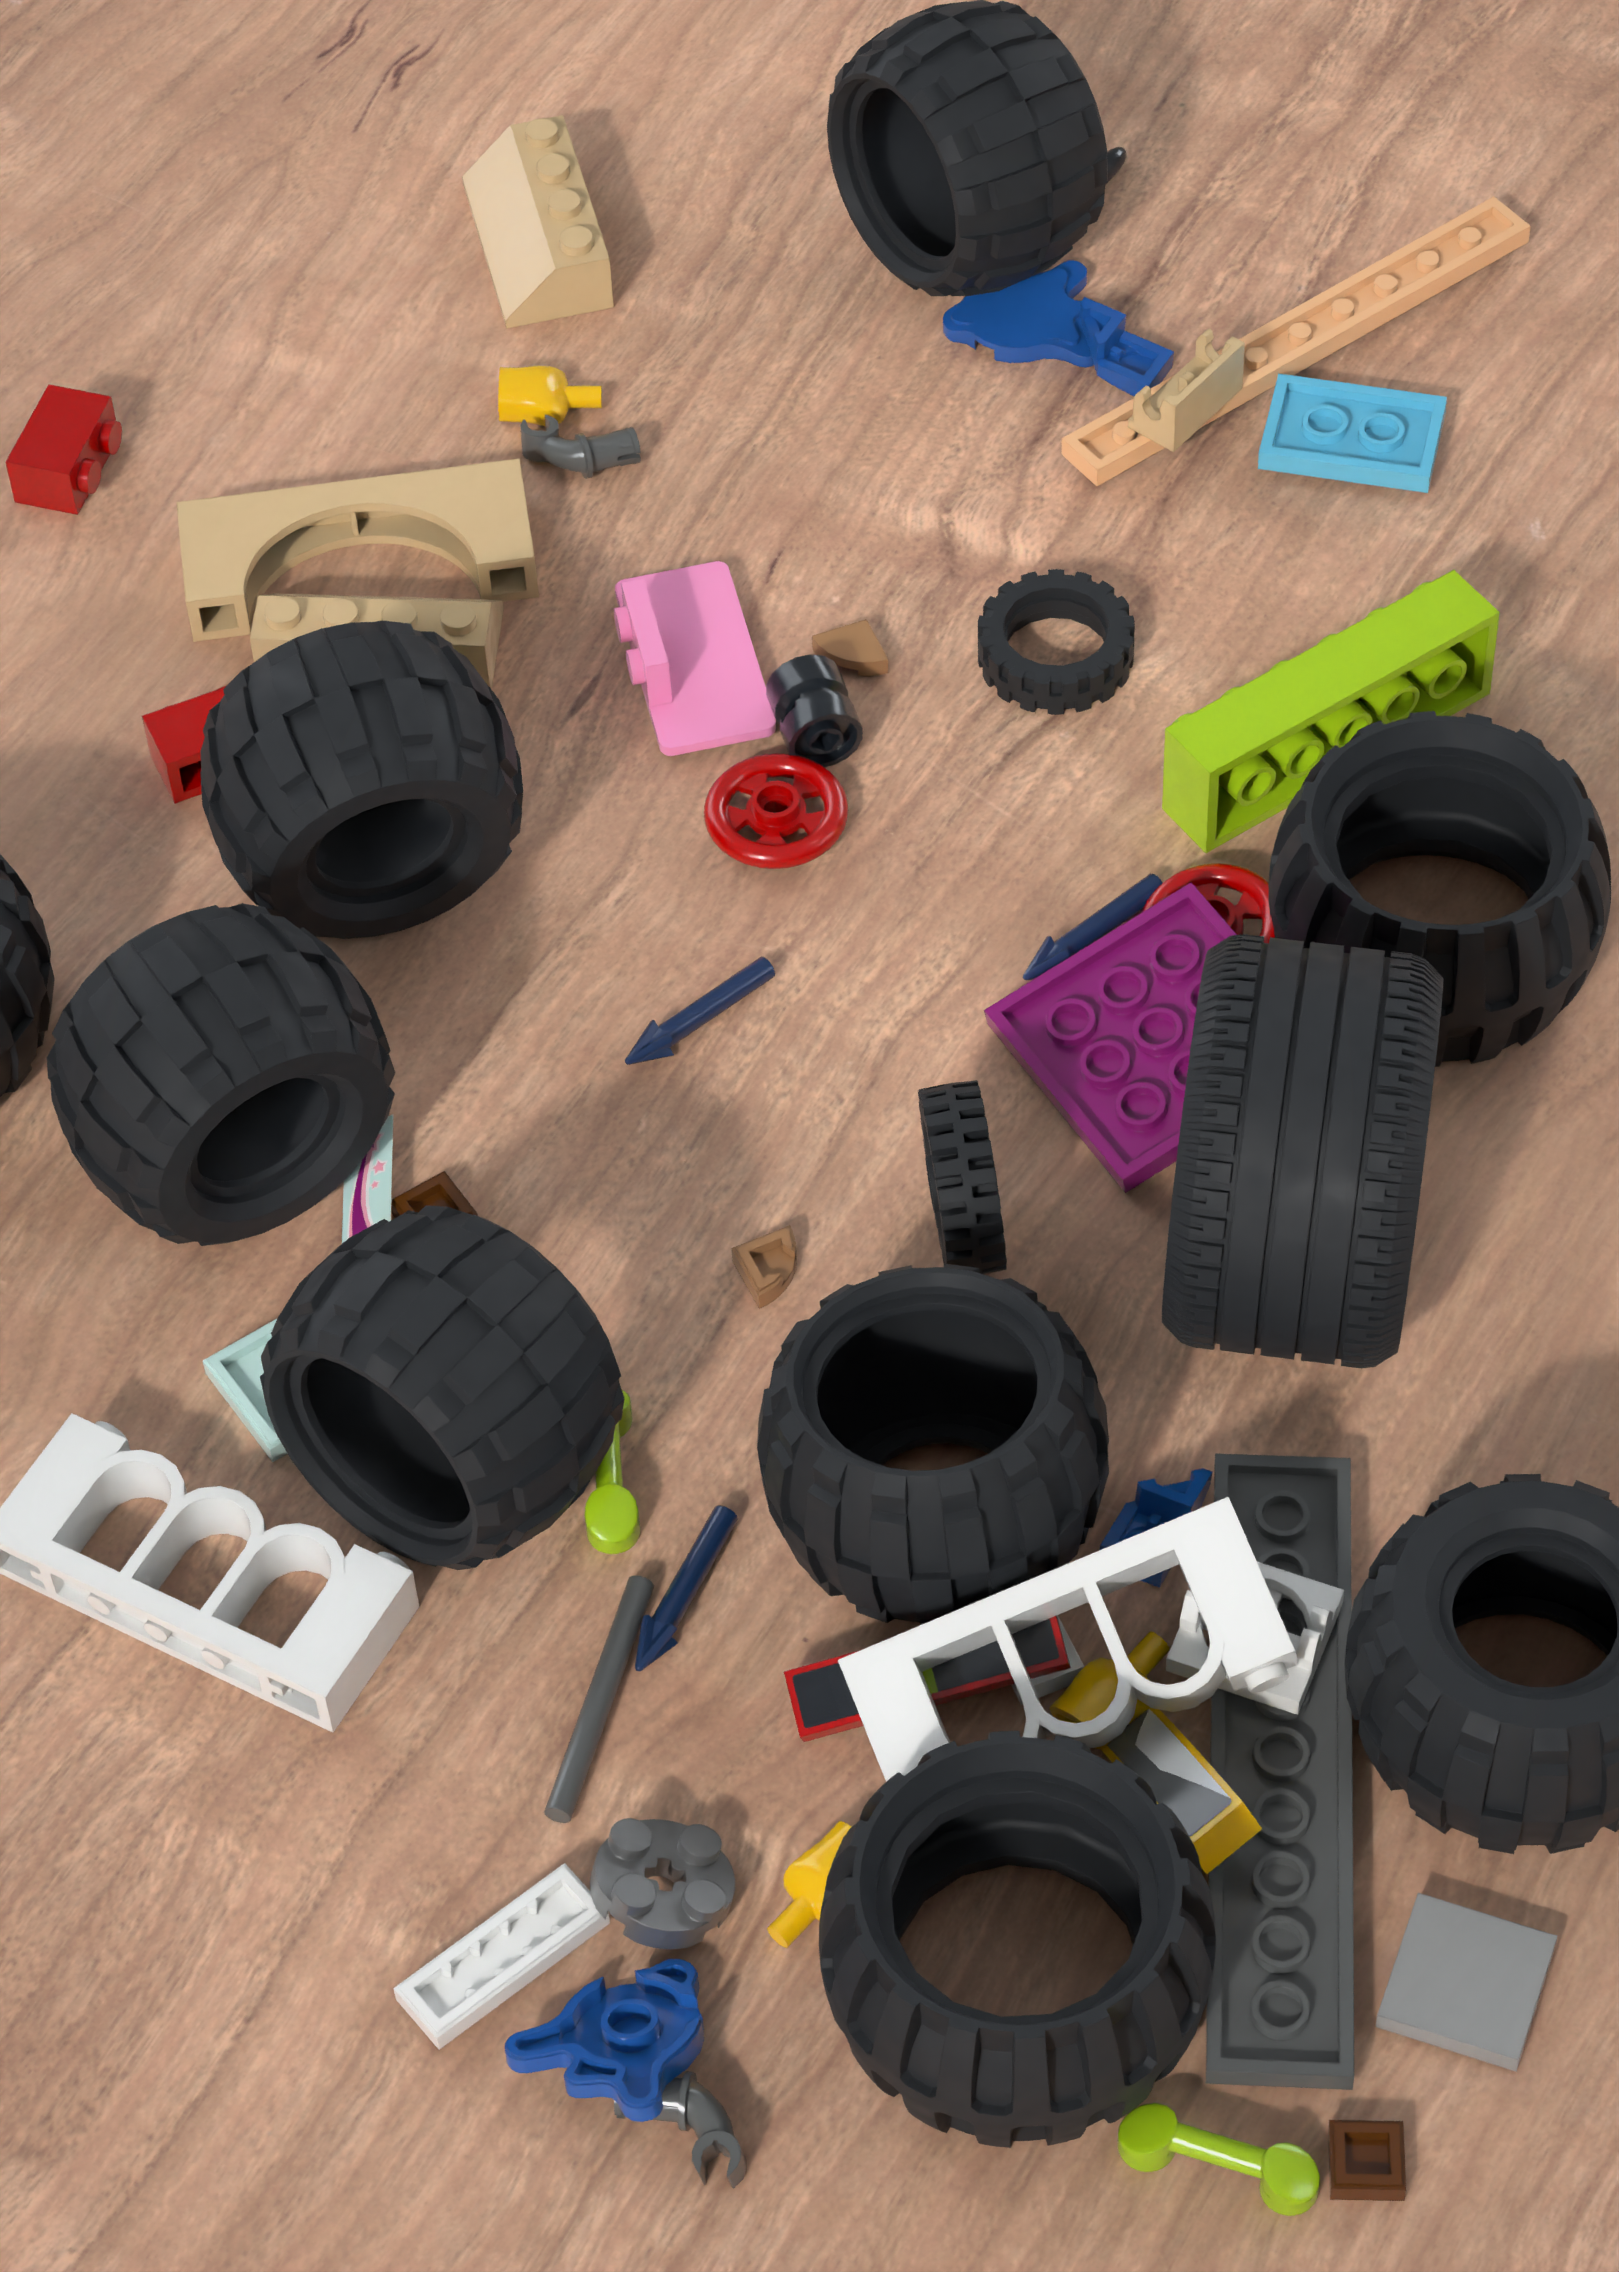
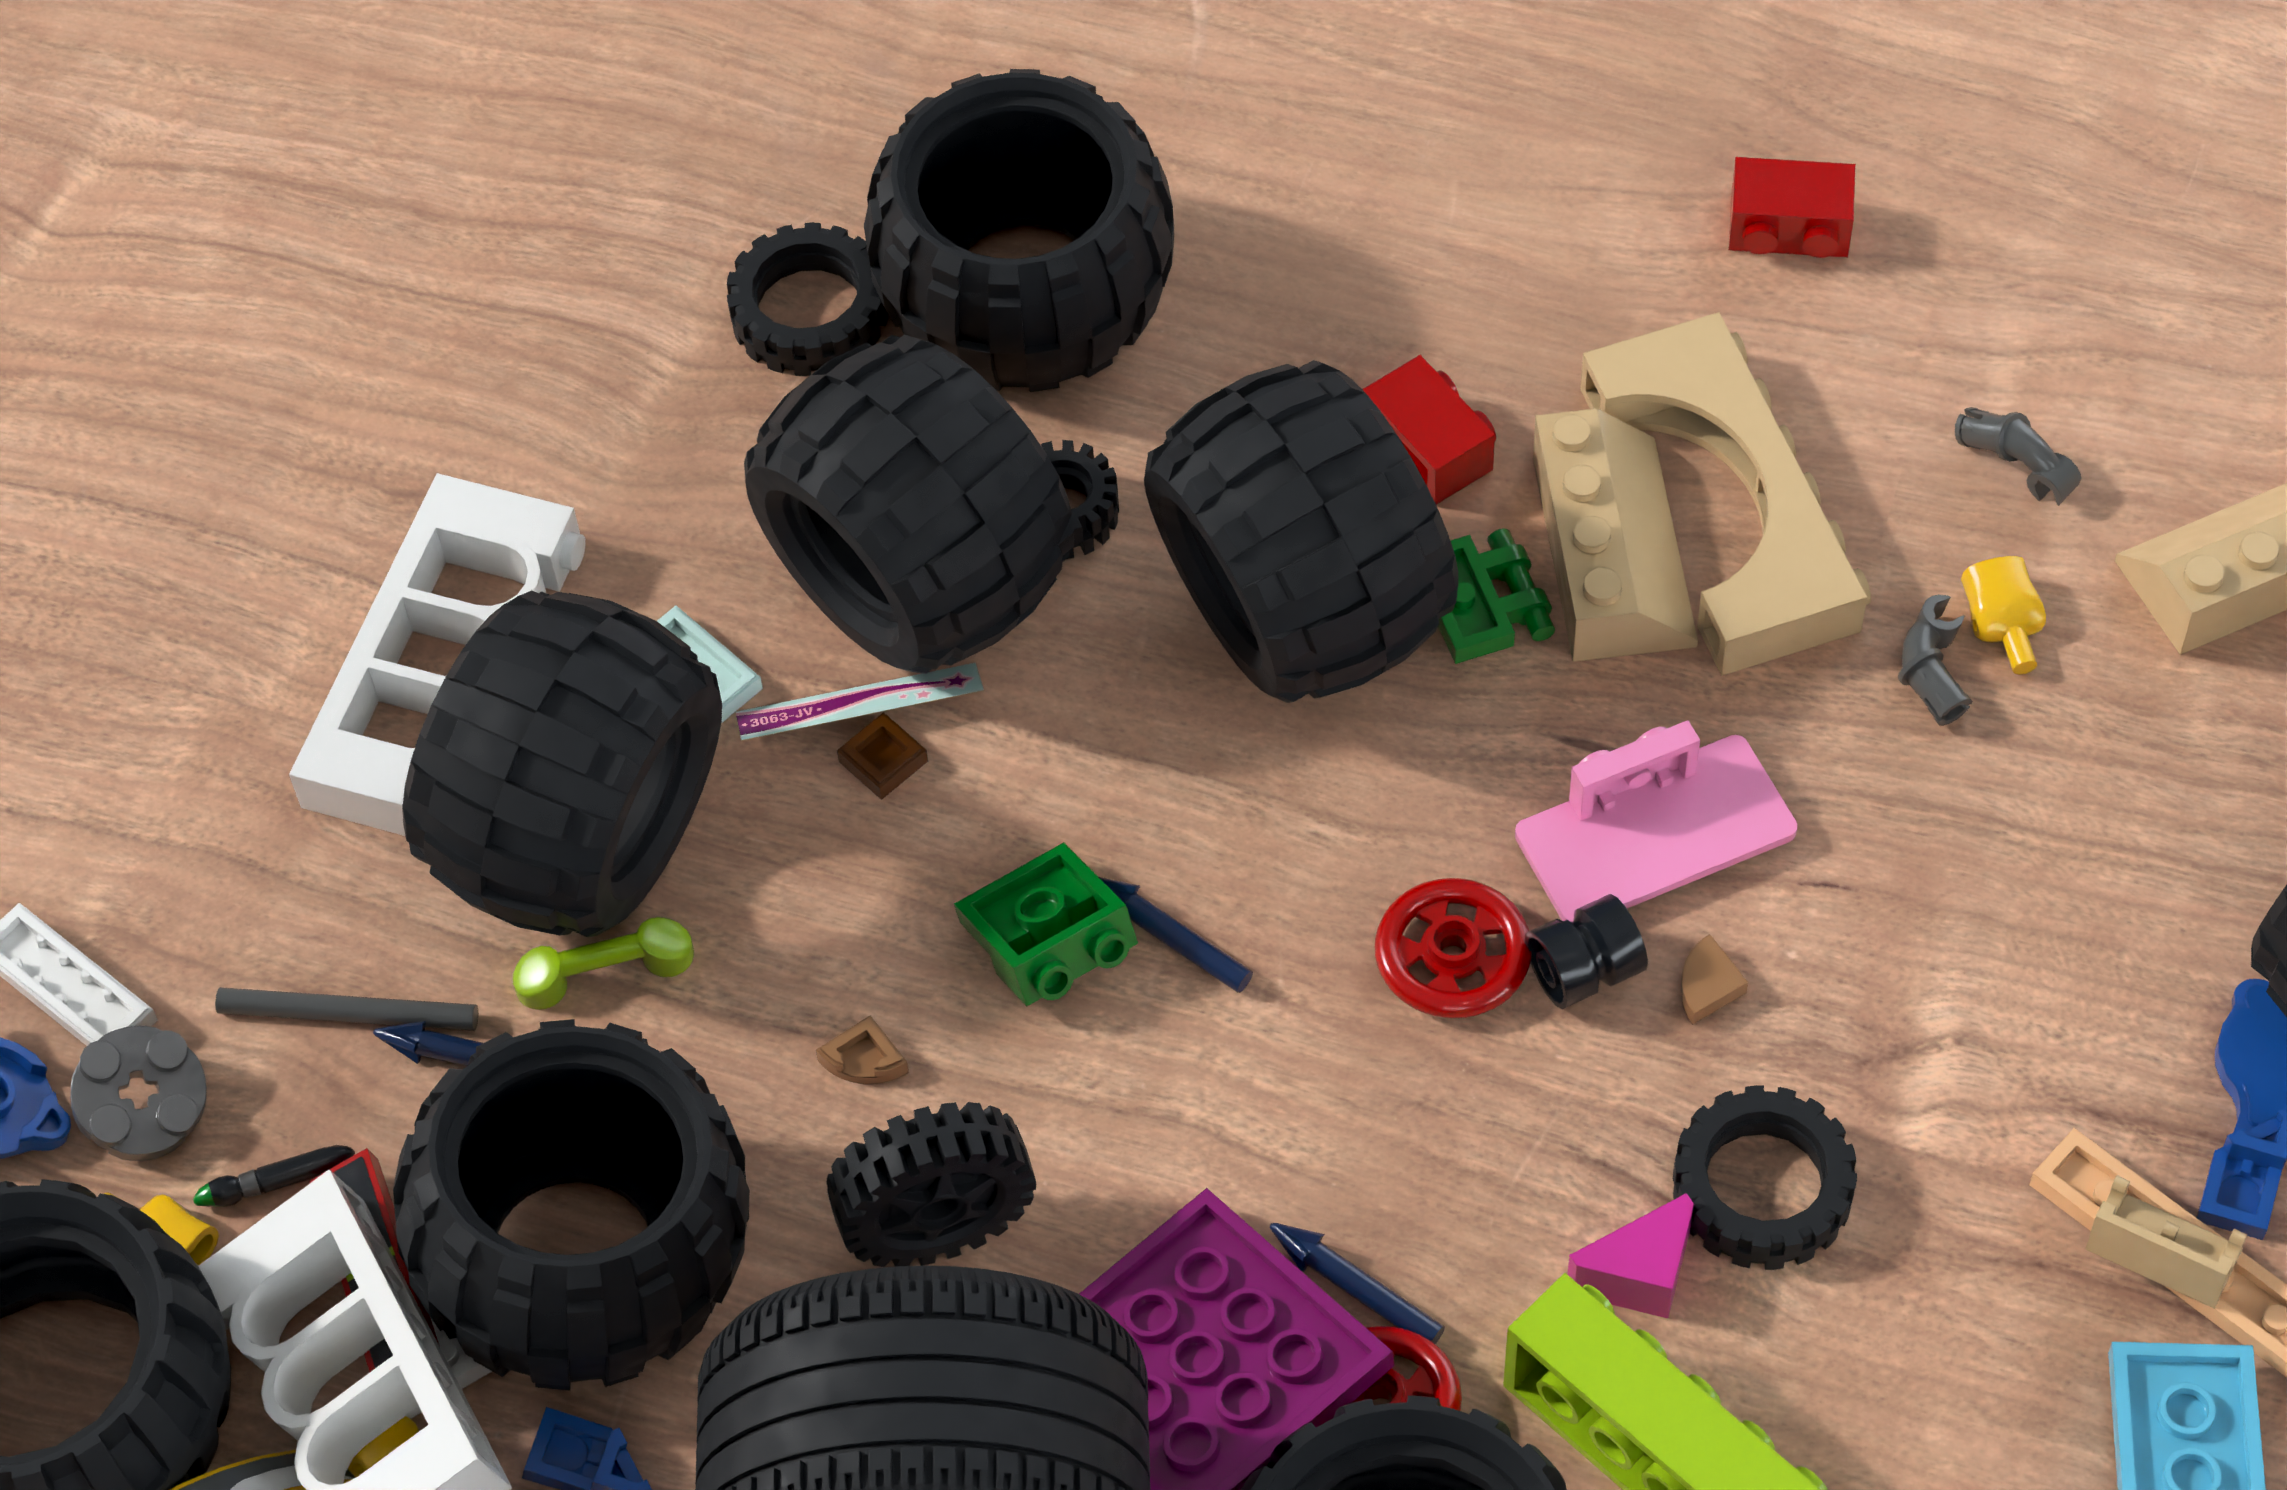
camera: 80 degrees right, 5 degrees up
(378, 347) = (2016, 440): none -> dark grey piece
(675, 1091) = (1048, 924): none -> green plate
(788, 1817) = (230, 1189): none -> black piece
(1121, 724) = (1639, 1261): none -> dark pink slope

